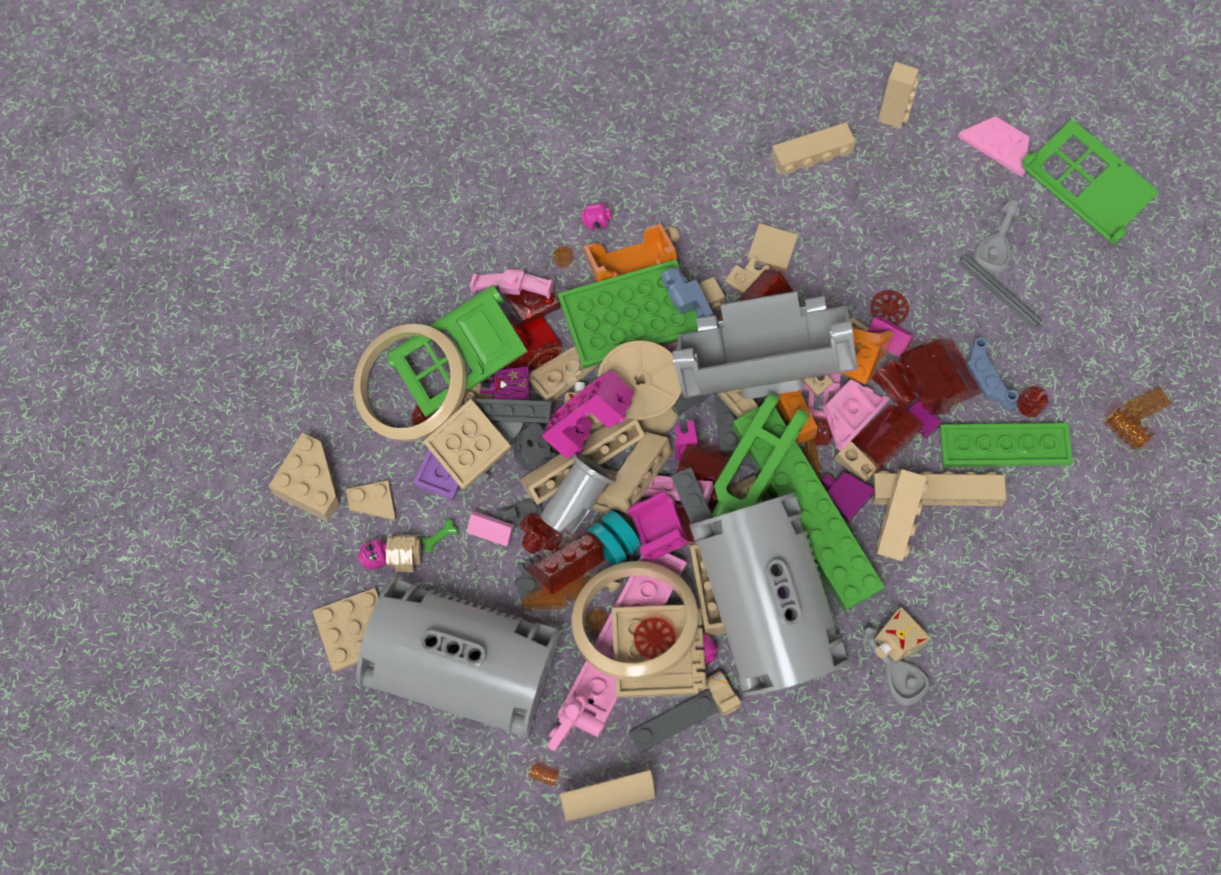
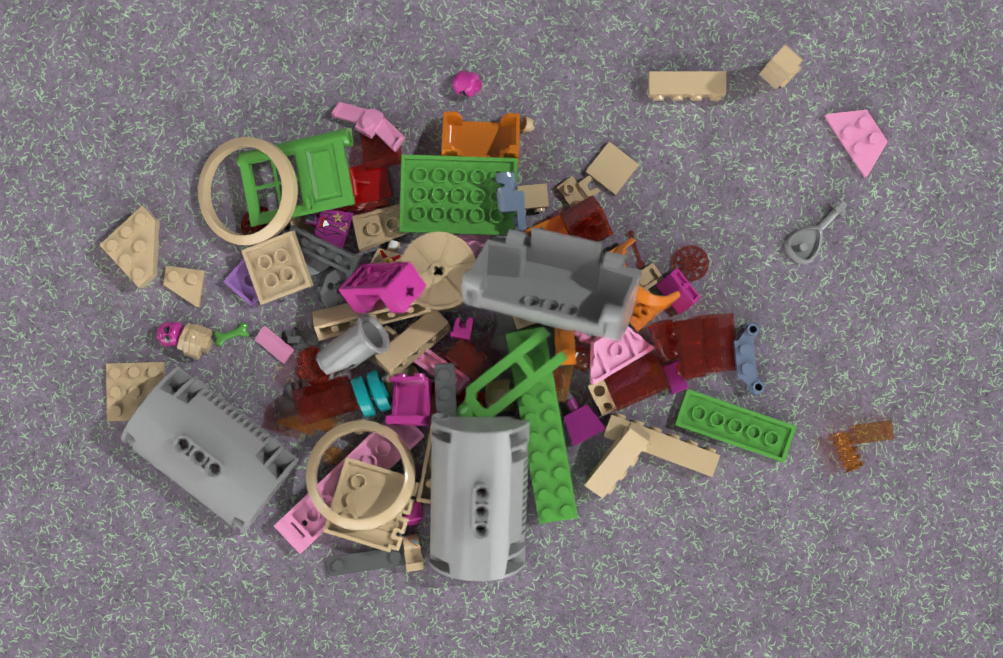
camera: 20 degrees right, 20 degrees up
(543, 775) = (249, 568): clear orange pin -> none
(562, 257) = (423, 112): clear orange tile -> none
(567, 721) = (277, 537): bright pink hinge -> none
(607, 796) = (290, 604): tan slope -> none
(654, 637) = (370, 496): clear red wheel -> none
(900, 637) = (574, 559): tan torso -> none
(904, 680) = (565, 593): light grey piece -> none
(1000, 291) = (794, 282): dark grey axle -> none
(1032, 401) = (775, 396): clear red head -> none
(1109, 199) = (936, 226): bright green door -> none

